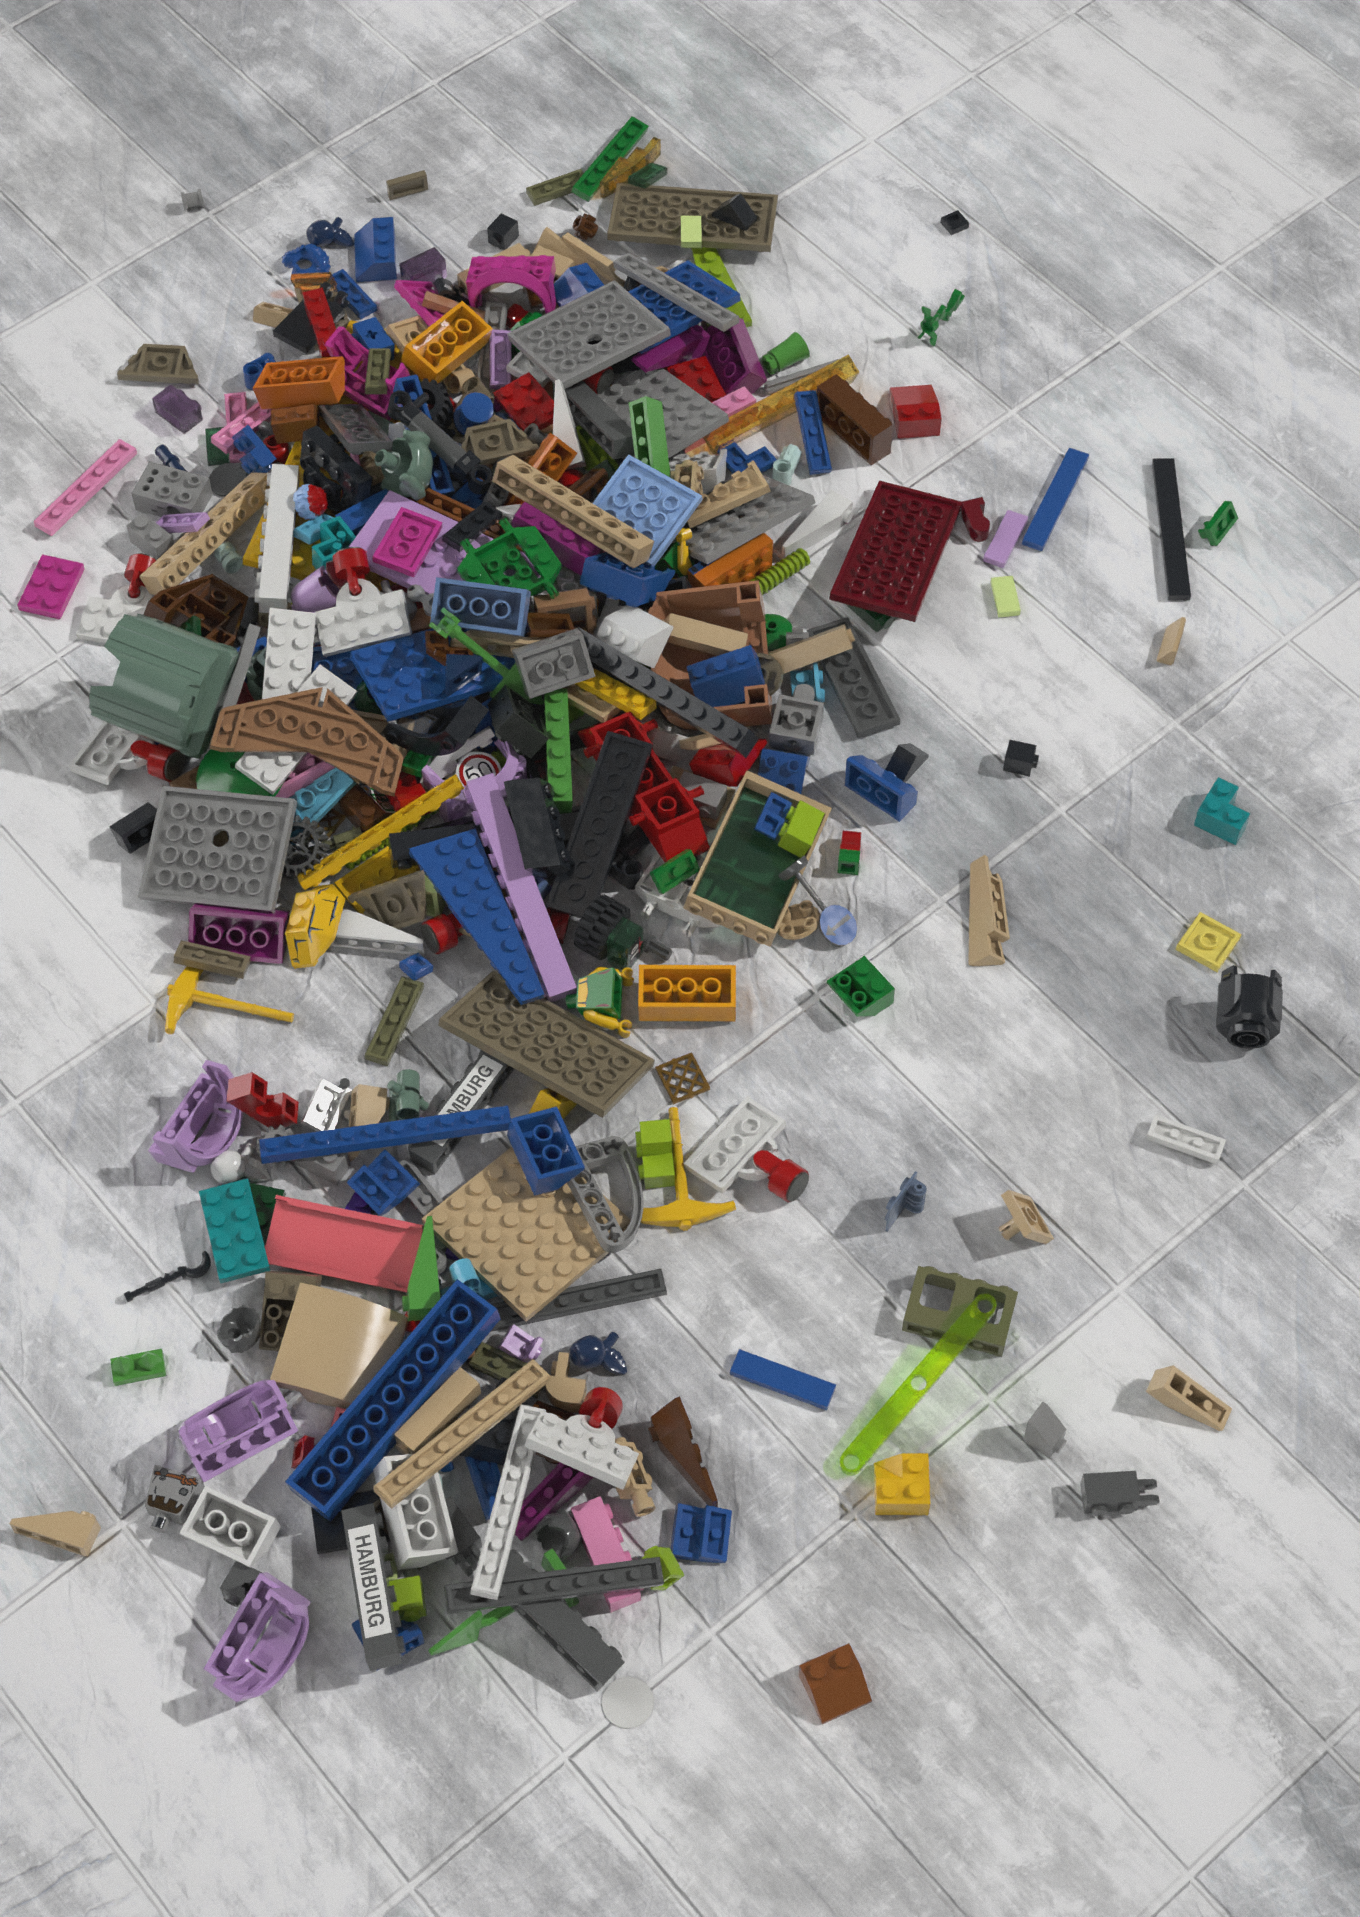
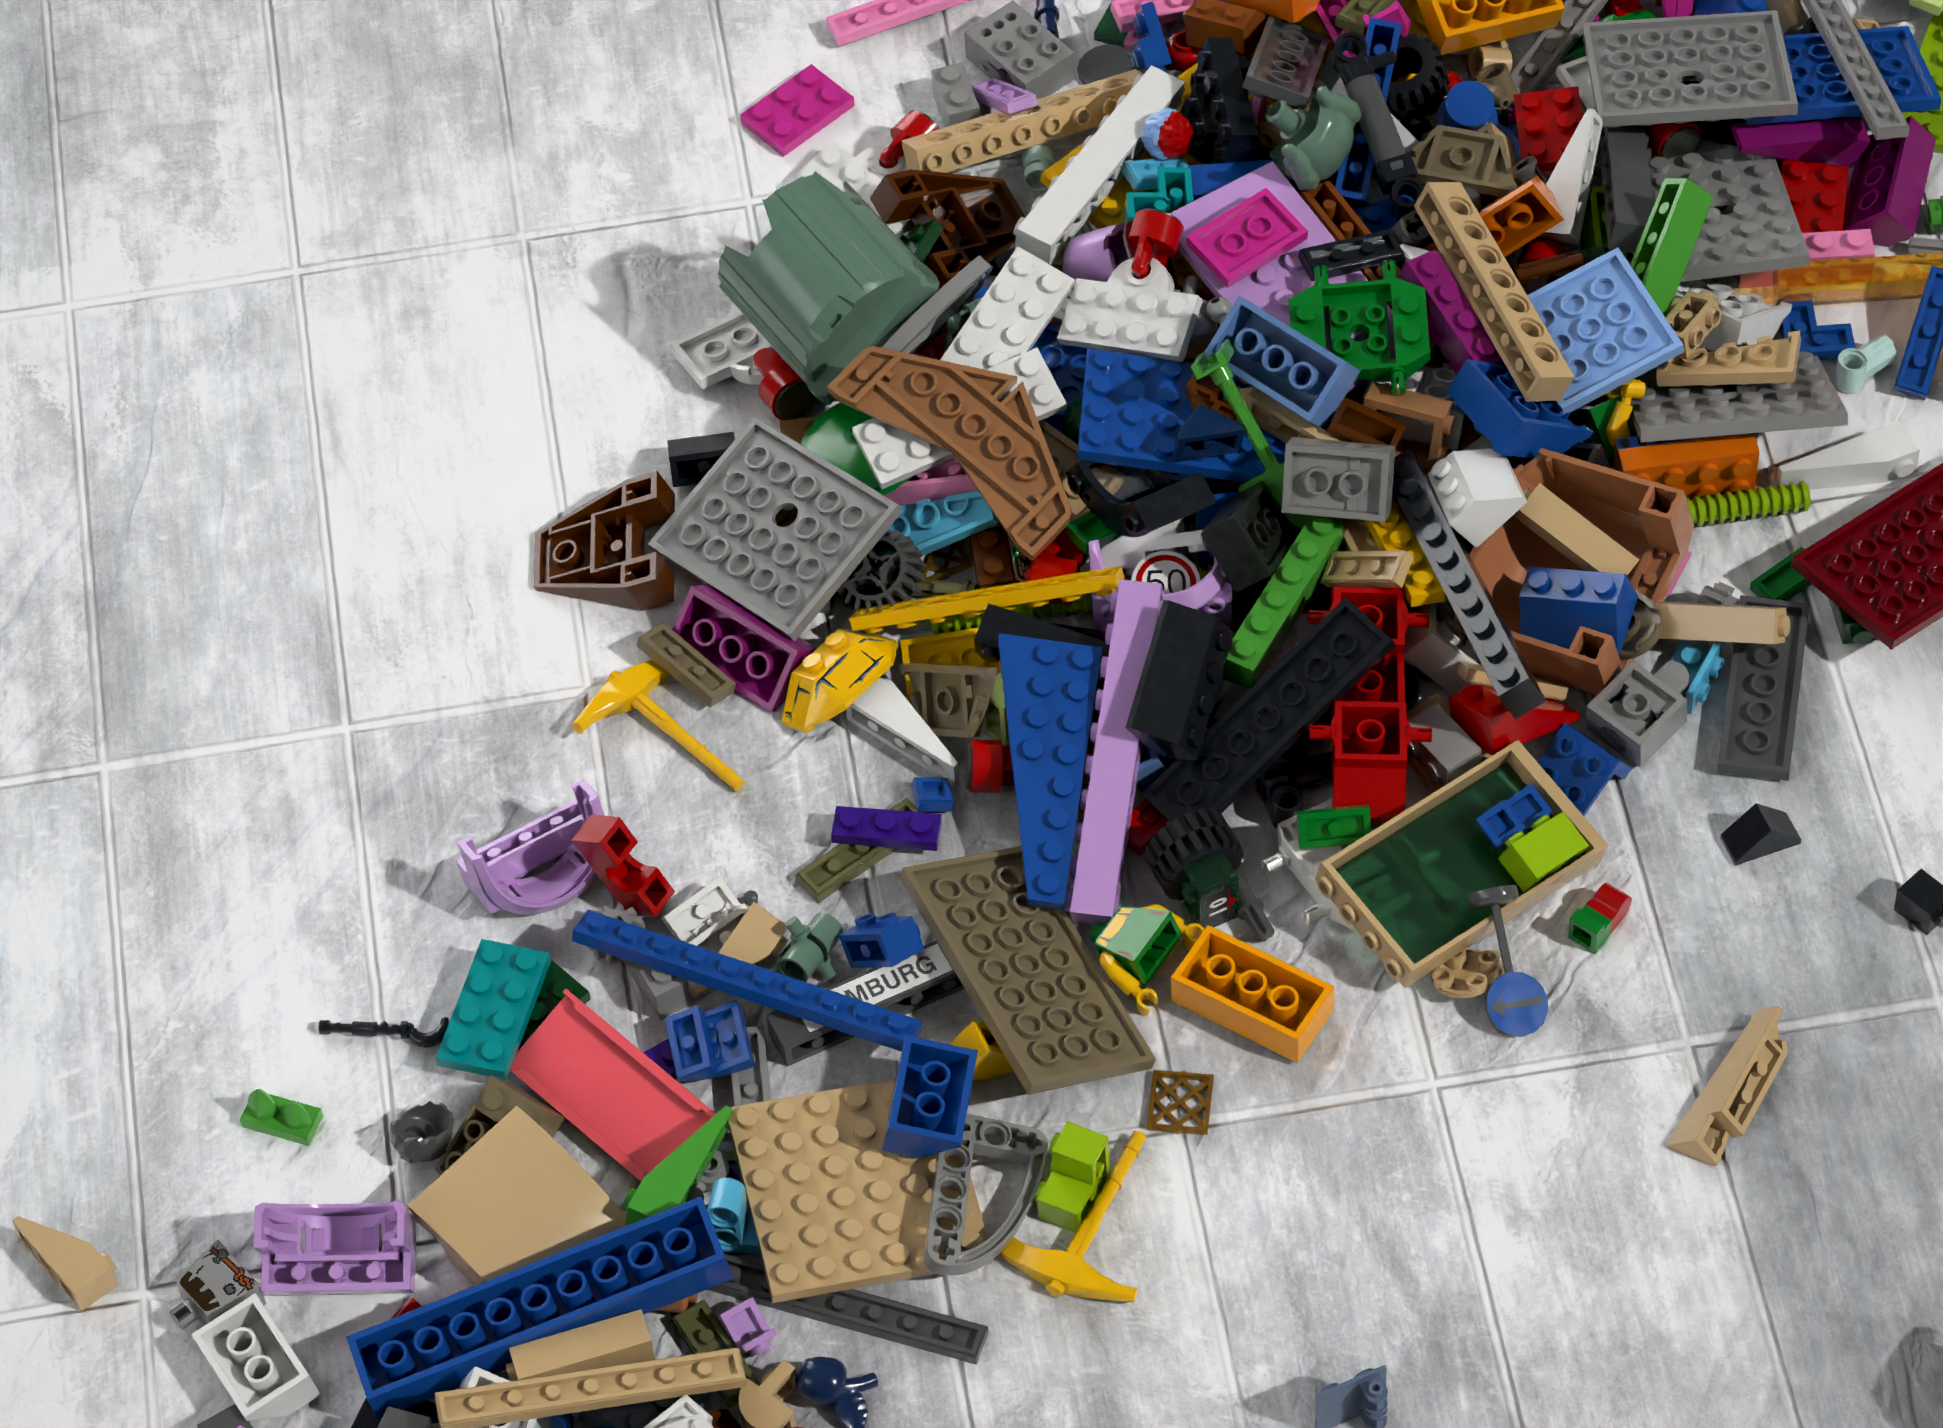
camera: 35 degrees right, 5 degrees down
(107, 916) = (600, 548): none -> reddish brown wedge
(233, 1166) = (542, 930): white piece -> none
(403, 1000) = (886, 828): none -> dark purple plate
(450, 1070) = (881, 940): none -> blue brick
(499, 358) = (1561, 48): lavender tile -> none
(599, 709) = (1367, 569): none -> tan tile
(747, 1149) = (1196, 1237): white plate -> none
(777, 636) = (1688, 585): green dish -> none
(822, 609) = (1780, 581): none -> green tile
(863, 988) = (1488, 1102): green slope -> none
(879, 786) = (1699, 848): blue slope -> none

